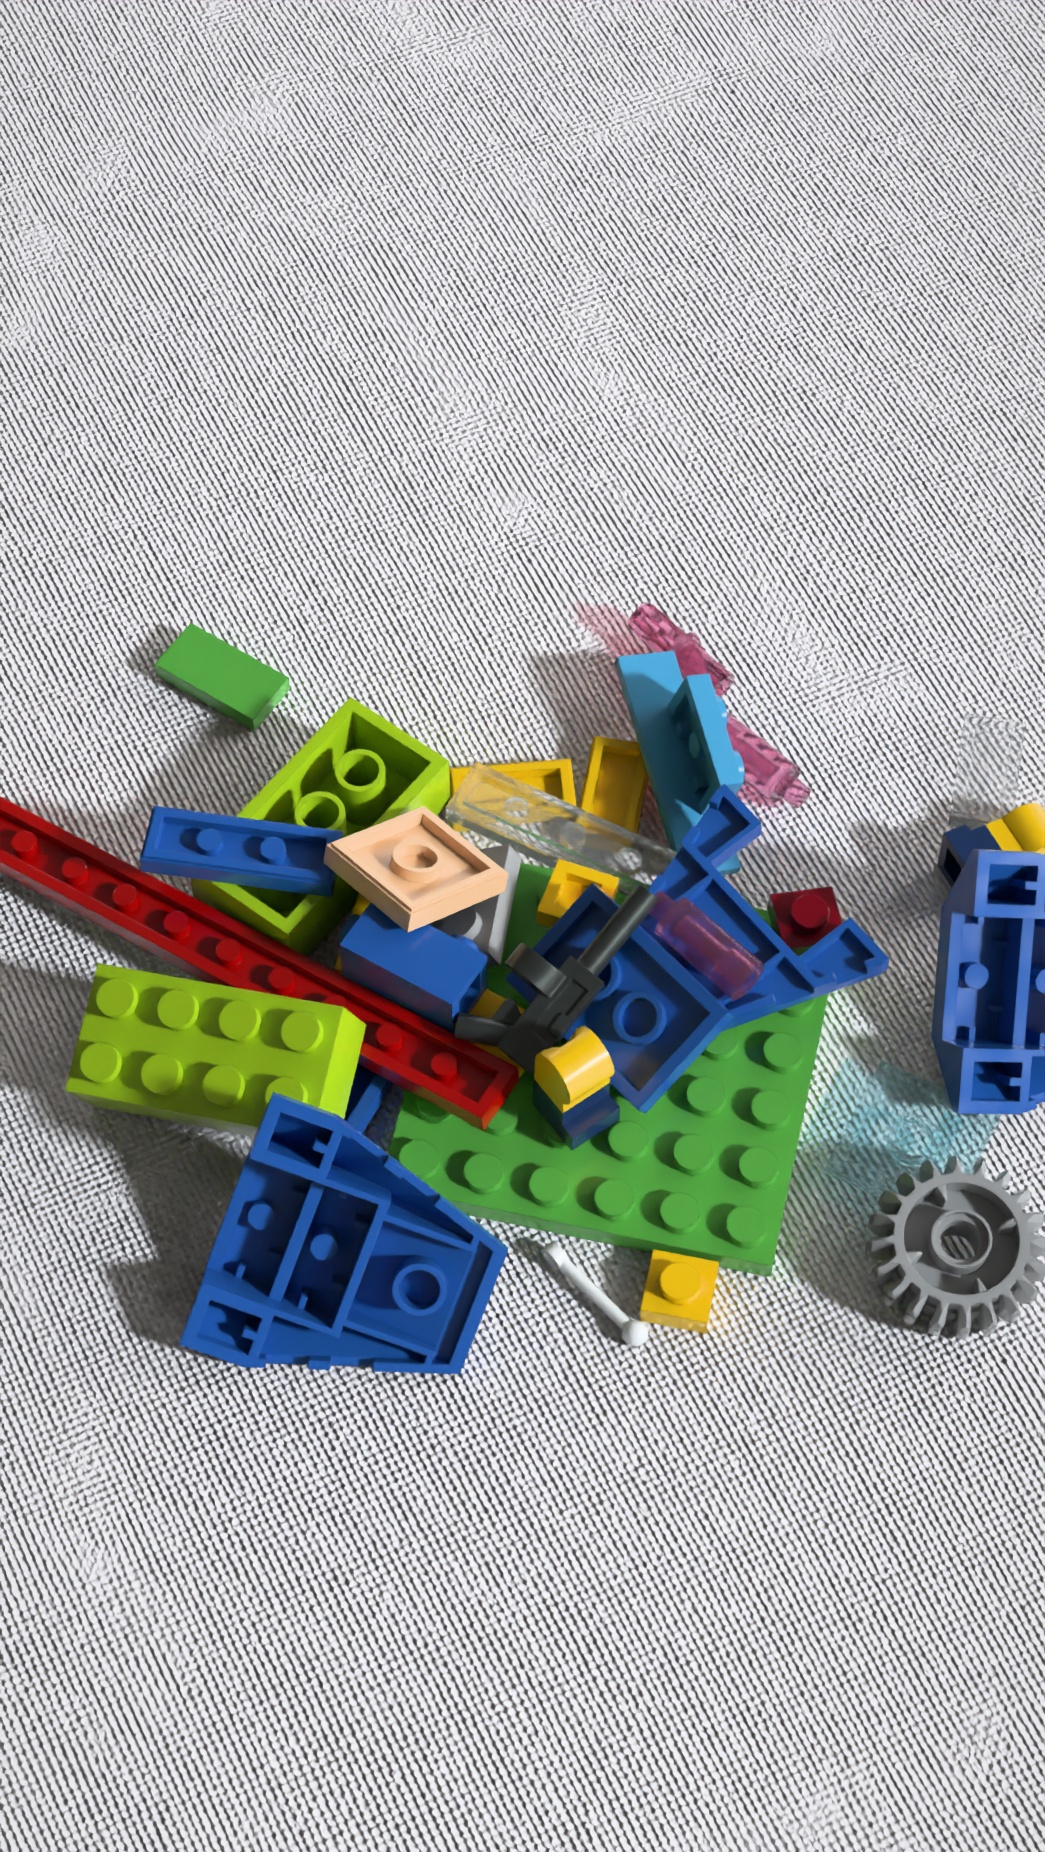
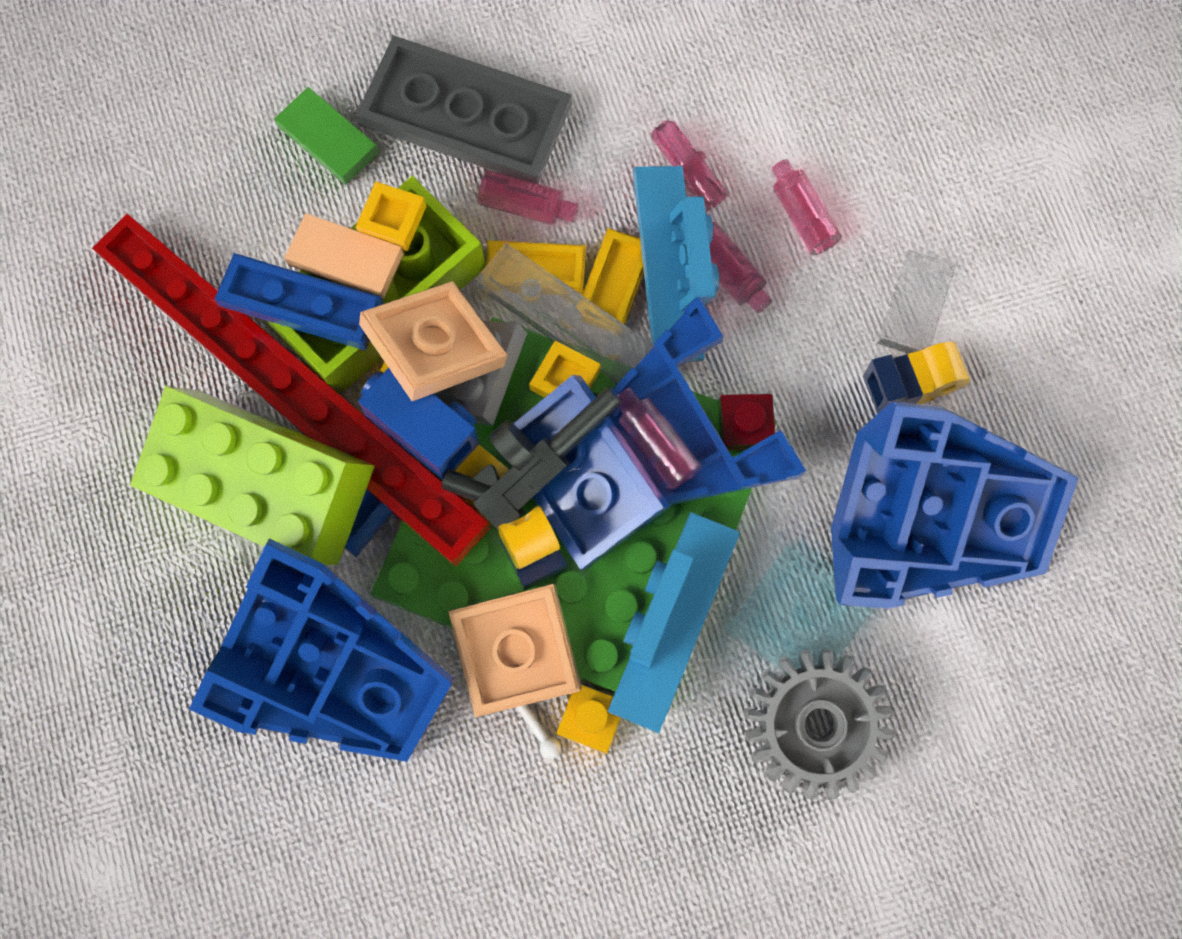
camera: 10 degrees right, 15 degrees up
(286, 791) = (344, 255): none -> light nougat tile
(338, 740) = (391, 215): none -> yellow plate
(391, 625) = (464, 109): none -> dark grey plate
(486, 716) = (525, 199): none -> clear pink cylinder
(573, 1216) = (515, 650): none -> light nougat tile
(759, 1153) = (673, 622): none -> dark azure bracket
(831, 683) = (805, 208): none -> clear pink cylinder

